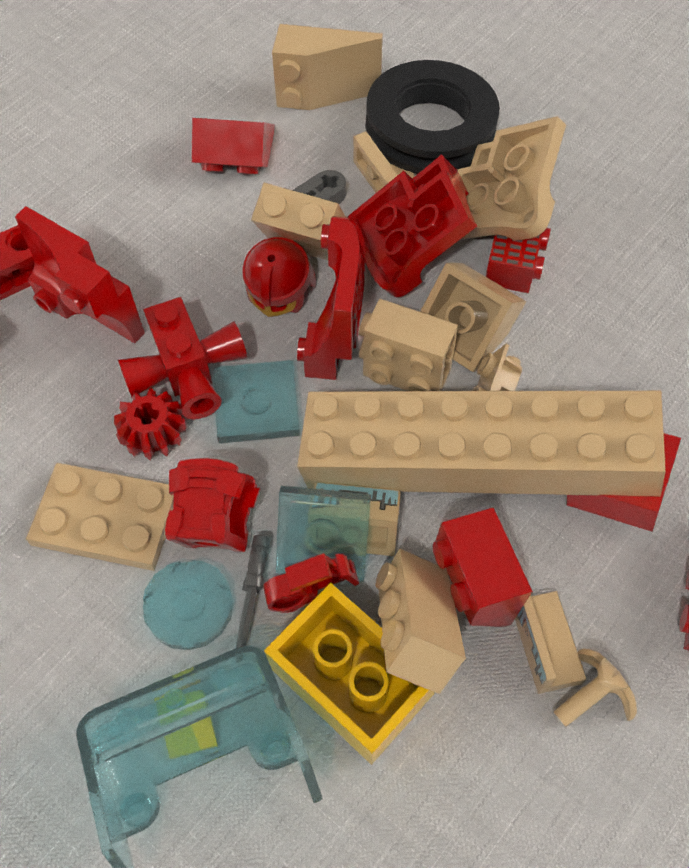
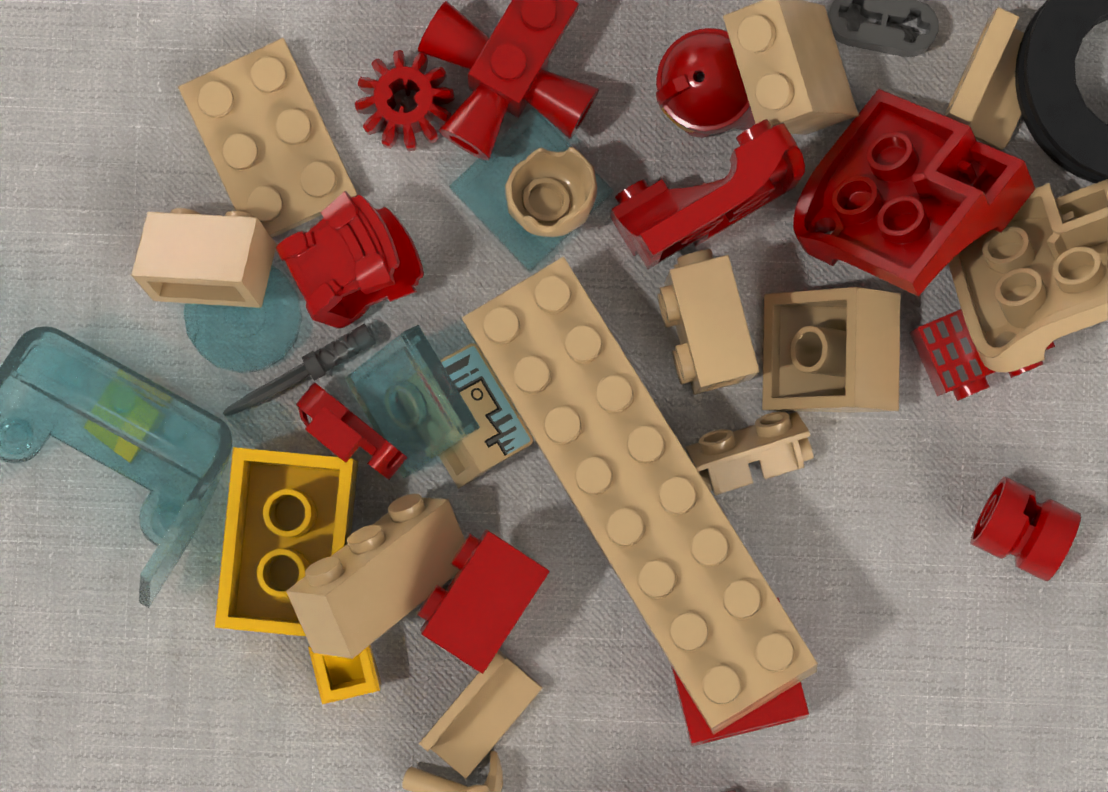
camera: 50 degrees right, 25 degrees up
(134, 590) = (204, 258): none -> tan brick
(268, 376) = (551, 192): none -> tan hair
(460, 702) = (345, 677): none -> yellow slope
(637, 287) = (1029, 530): none -> red wheel

